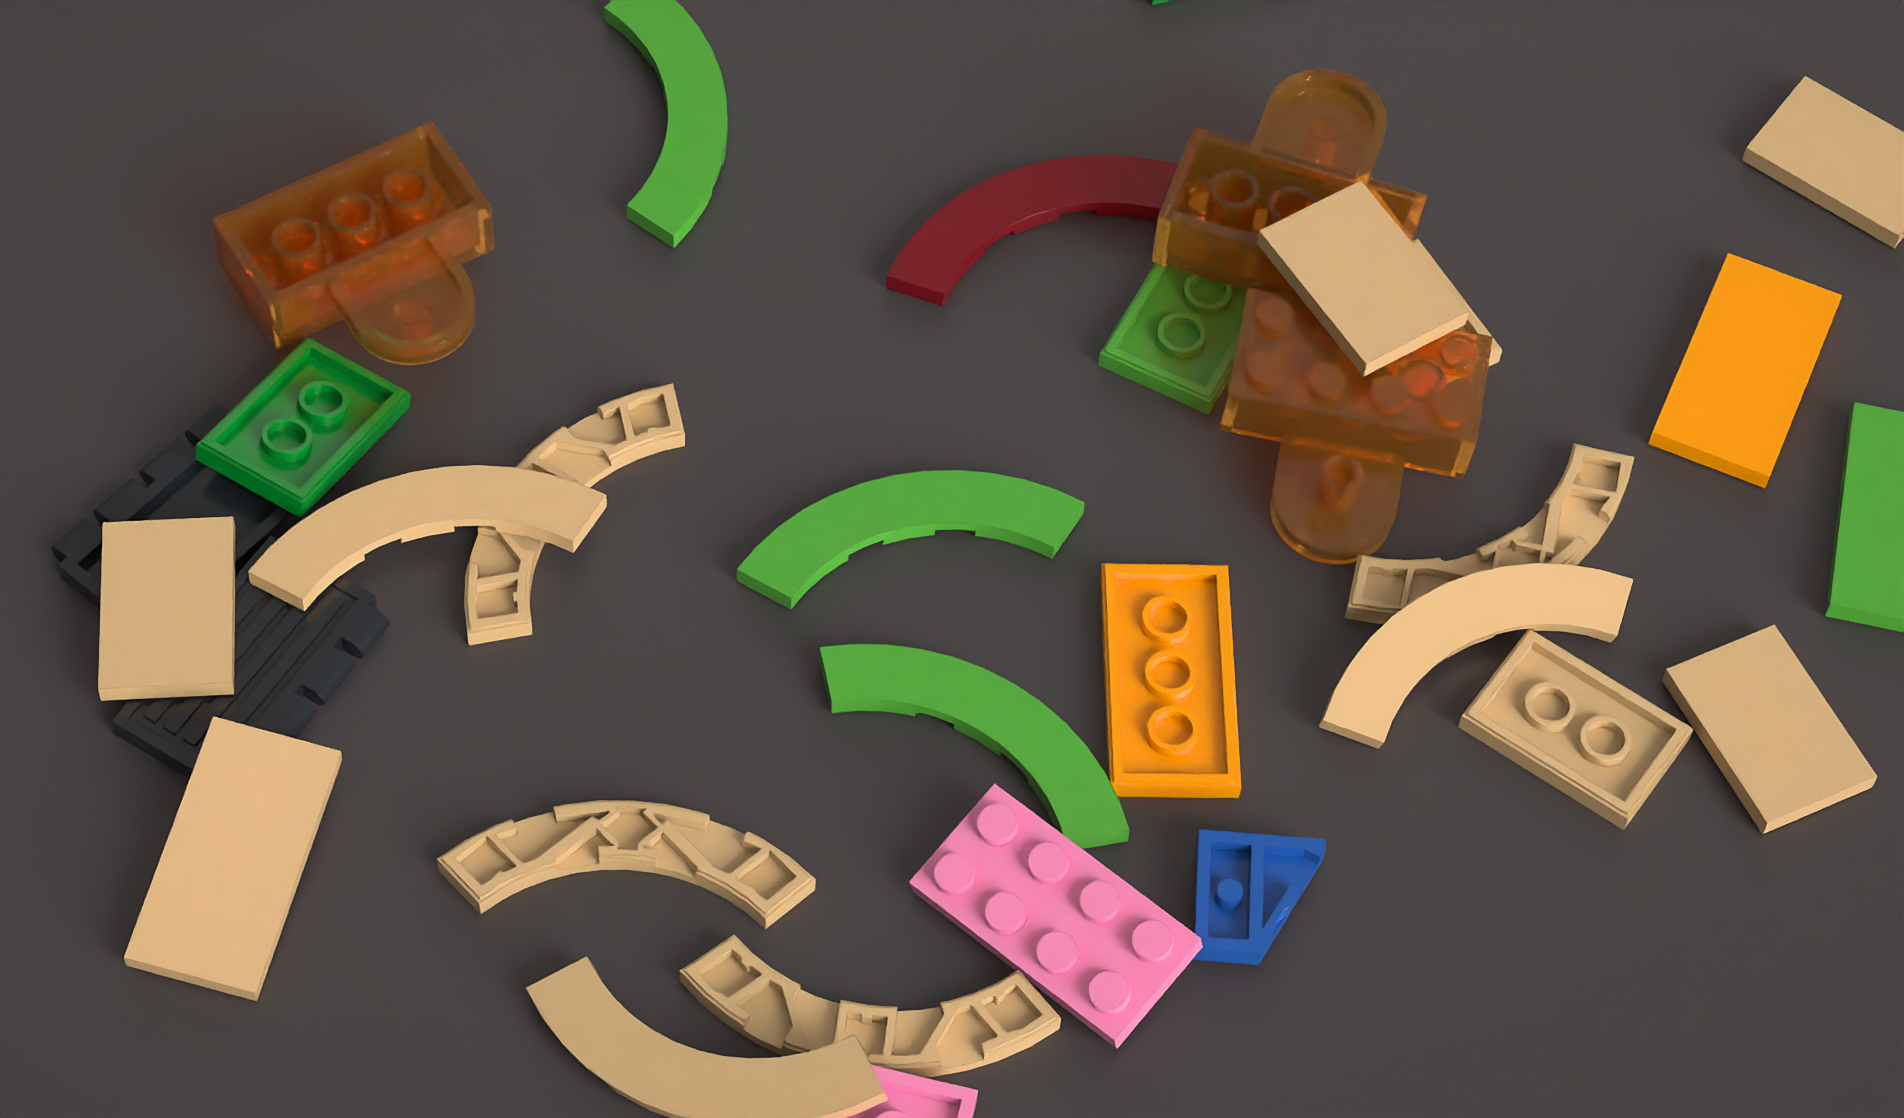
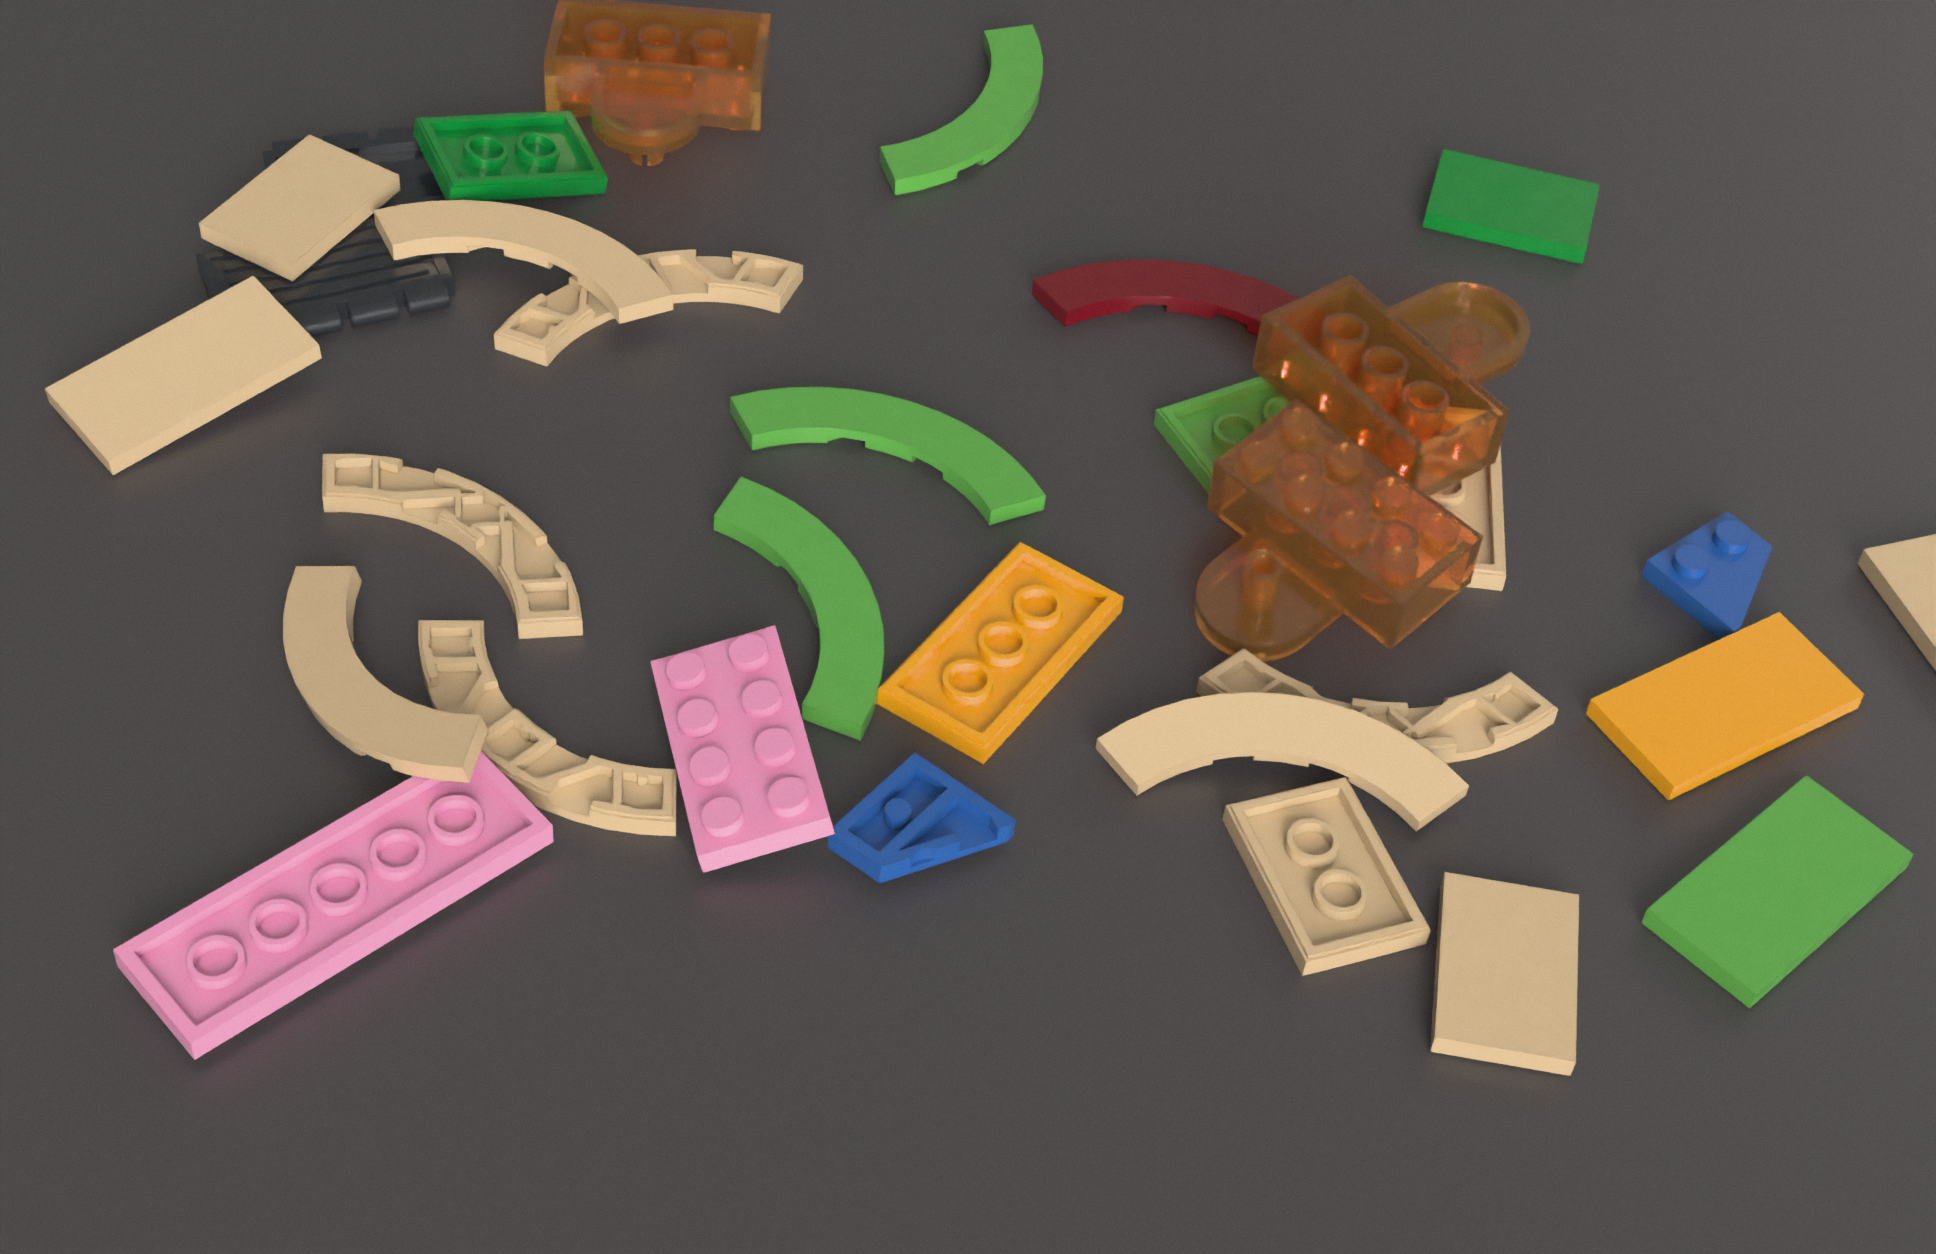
camera: 35 degrees right, 10 degrees down
(1362, 278) = (1394, 431): tan tile -> none
(1651, 244) = (1712, 573): none -> blue wing

